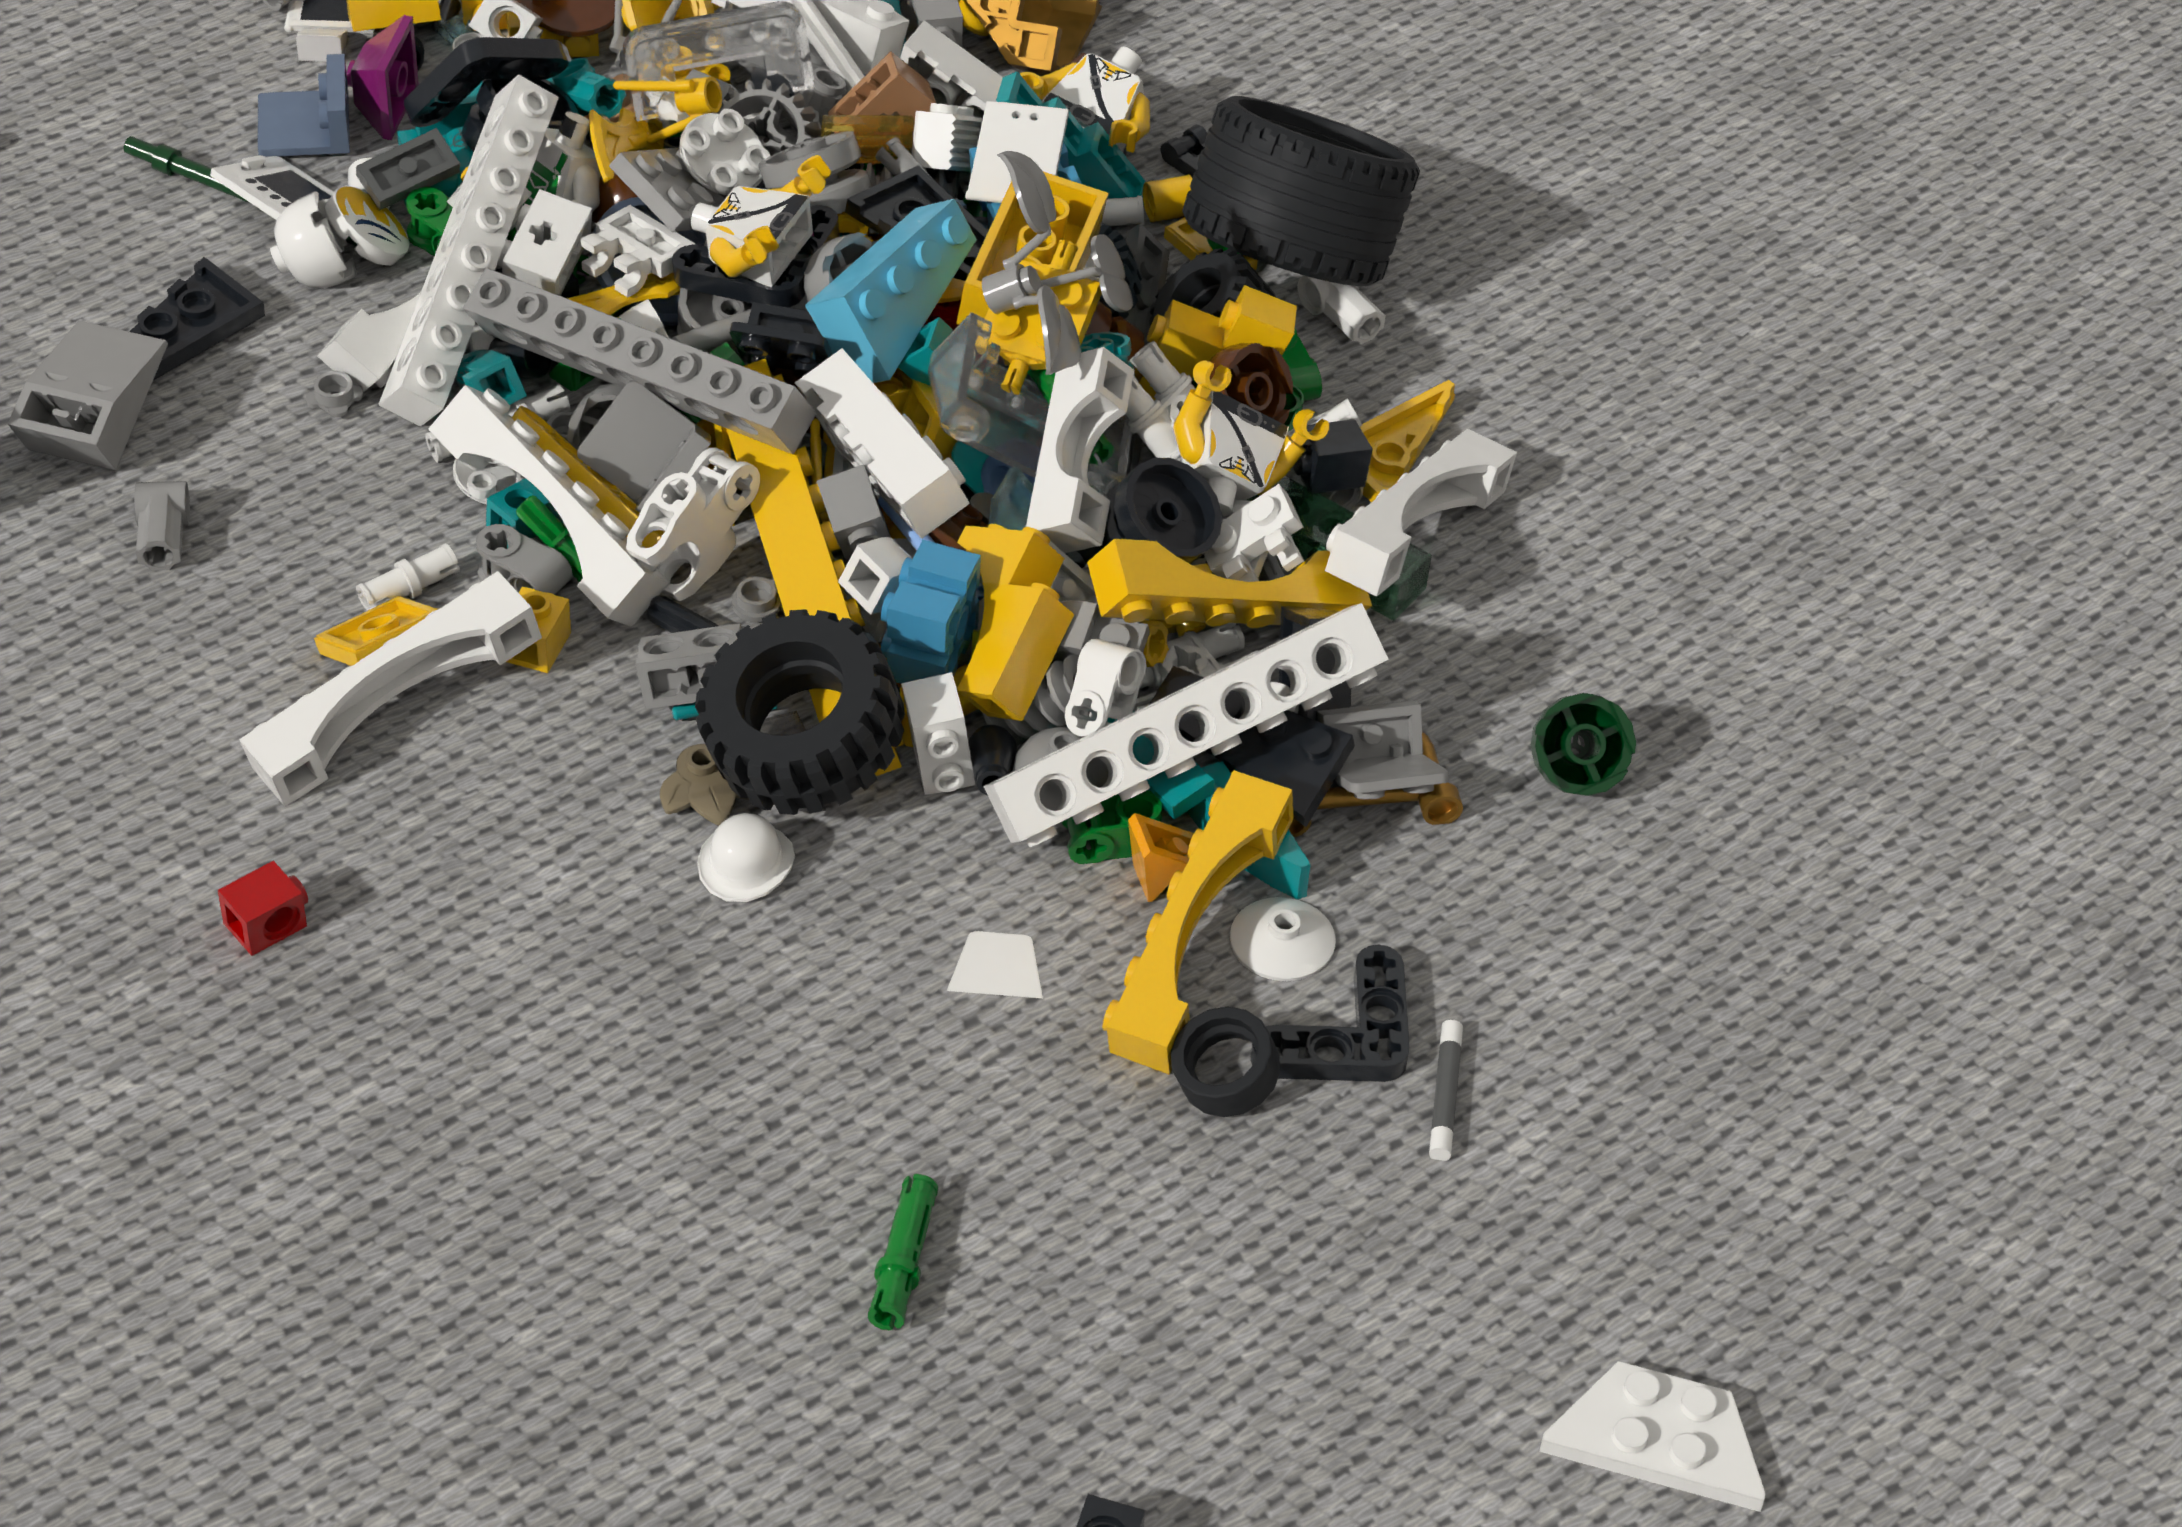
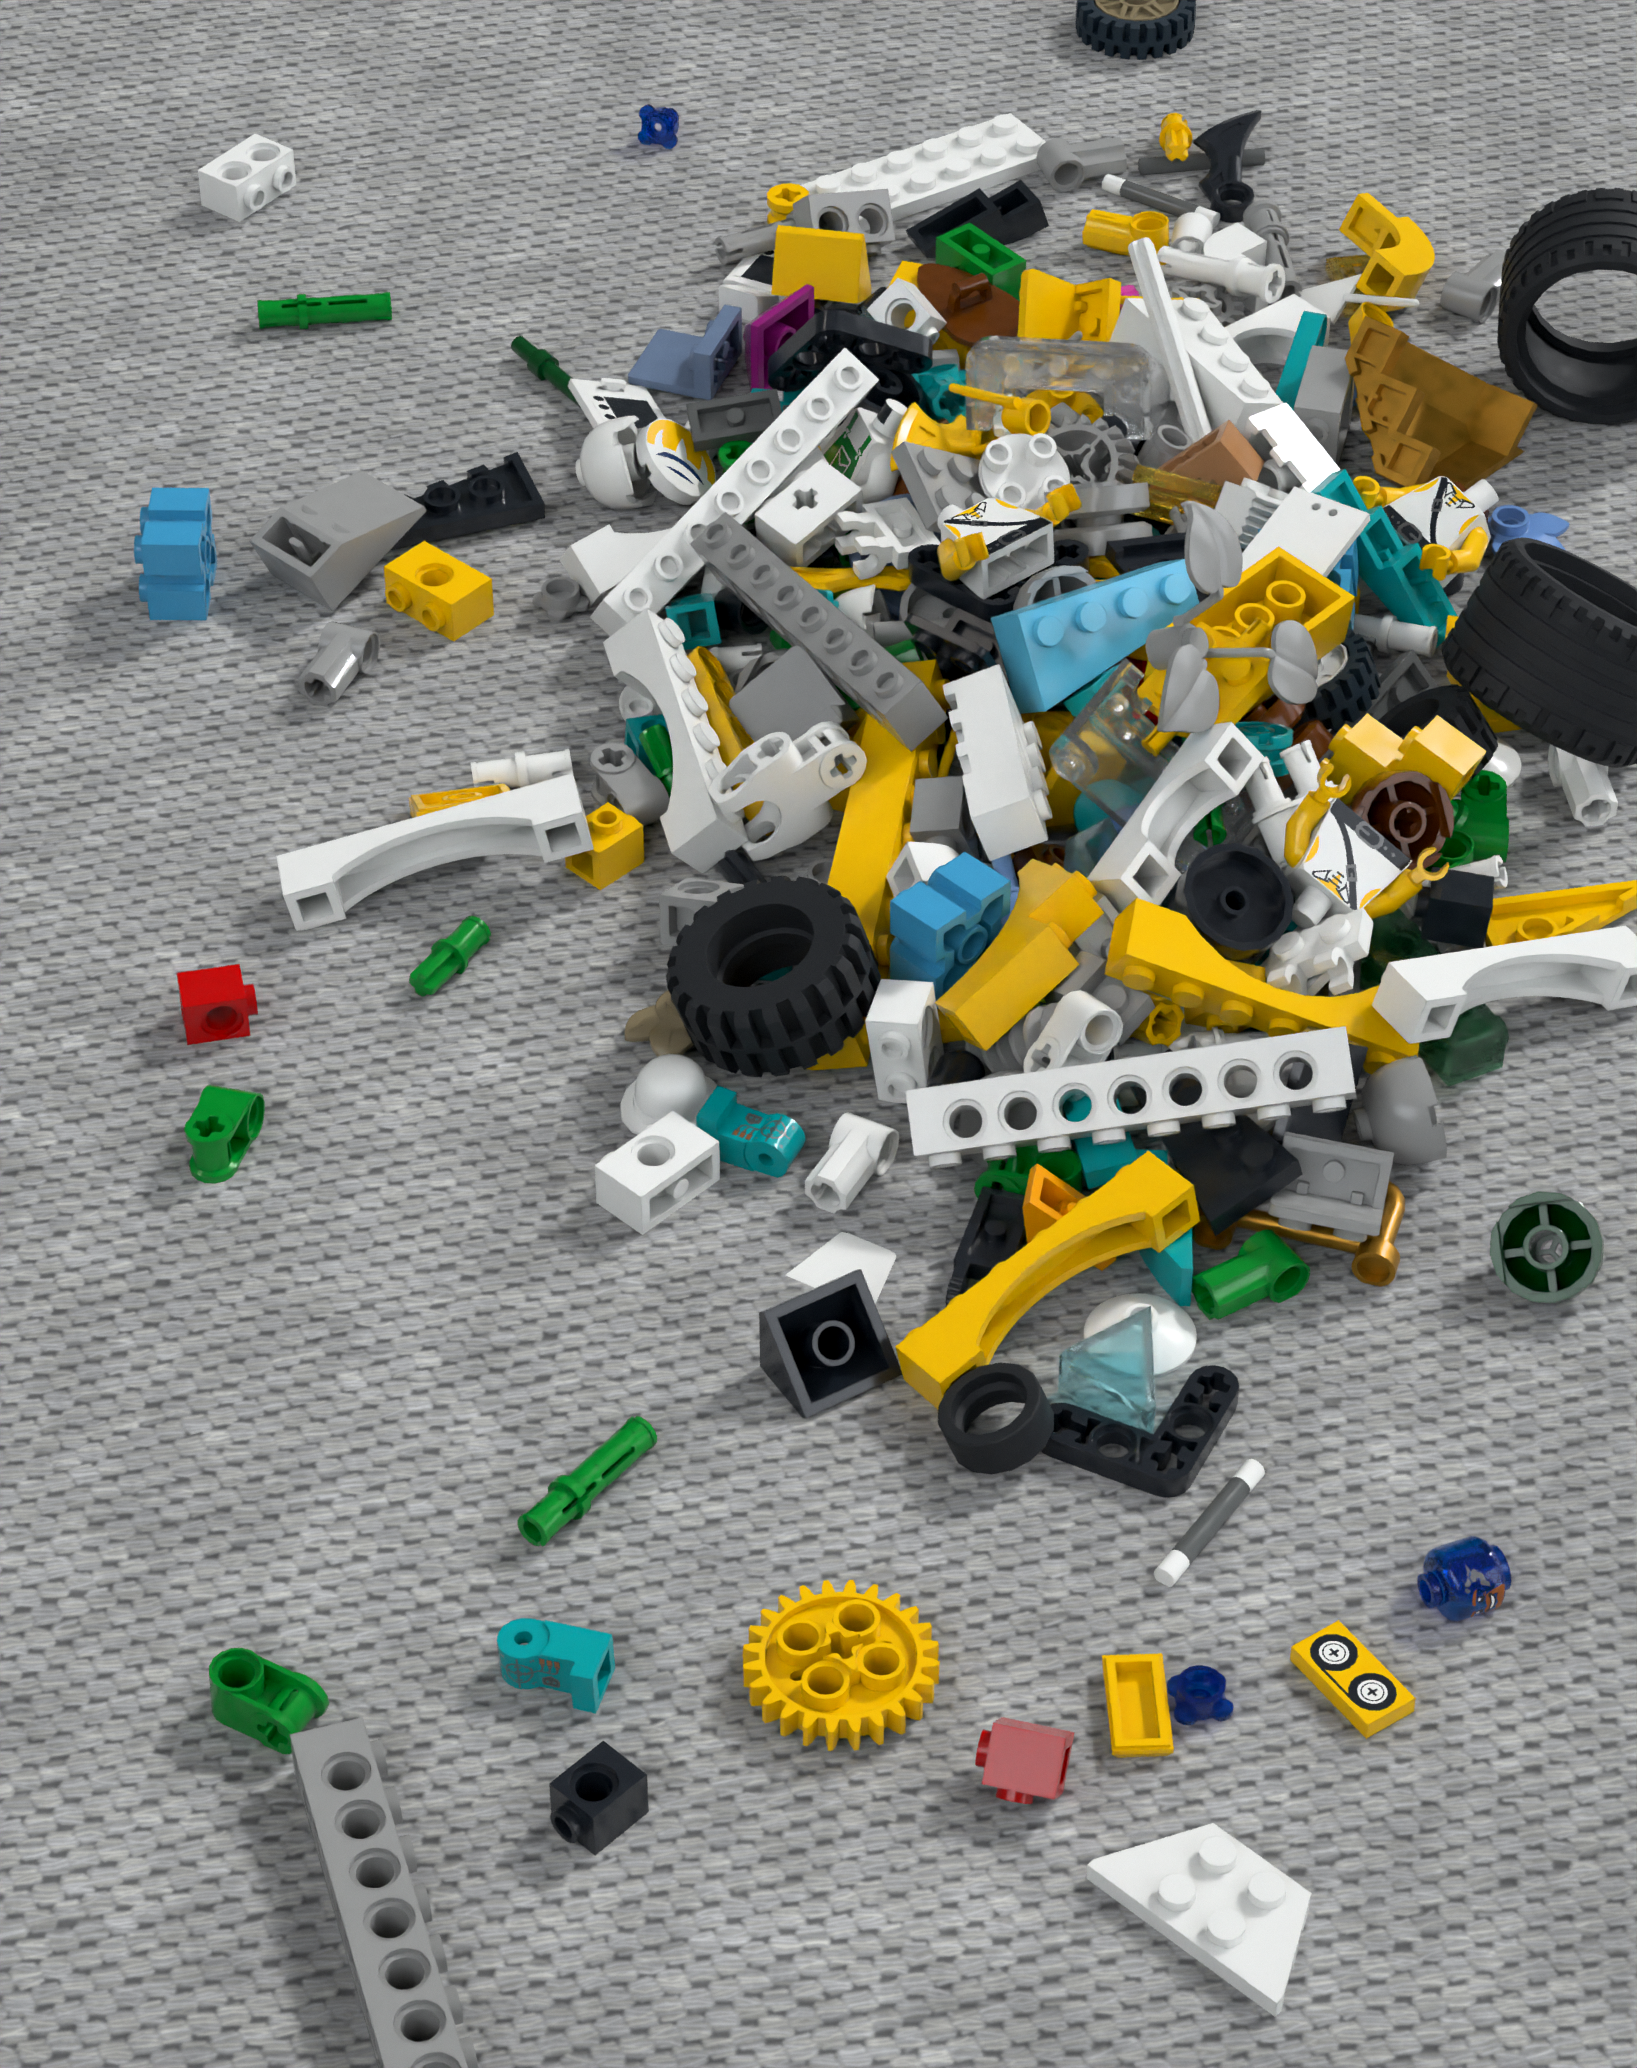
camera: 30 degrees right, 5 degrees down
(215, 420) = (438, 591): none -> yellow brick
(350, 1034) = (222, 1131): none -> green piece
(455, 784) = (450, 956): none -> green axle
(781, 933) = (657, 1172): none -> white brick
(842, 870) = (750, 1136): none -> teal leg
(946, 858) = (854, 1154): none -> white piece
(984, 1431) = (557, 1659): none -> teal leg
(1038, 1048) = (826, 1345): none -> black slope
(1113, 899) = (991, 1236): none -> black hinge
(1165, 89) = (1514, 522): none -> medium blue plate
(1194, 1312) = (841, 1665): none -> yellow gear
(1304, 983) = (1114, 1372): none -> clear light blue slope
(1351, 847) = (1260, 1270): none -> green piece
(1409, 669) = (1401, 1113): none -> light grey cylinder
(1442, 1366) = (1024, 1760): none -> brick
(1491, 1278) = (1137, 1705): none -> yellow tile
(1540, 1238) = (1199, 1682): none -> clear blue plate
(1644, 1187) = (1352, 1679): none -> yellow tile
(1683, 1062) = (1464, 1578): none -> clear blue head

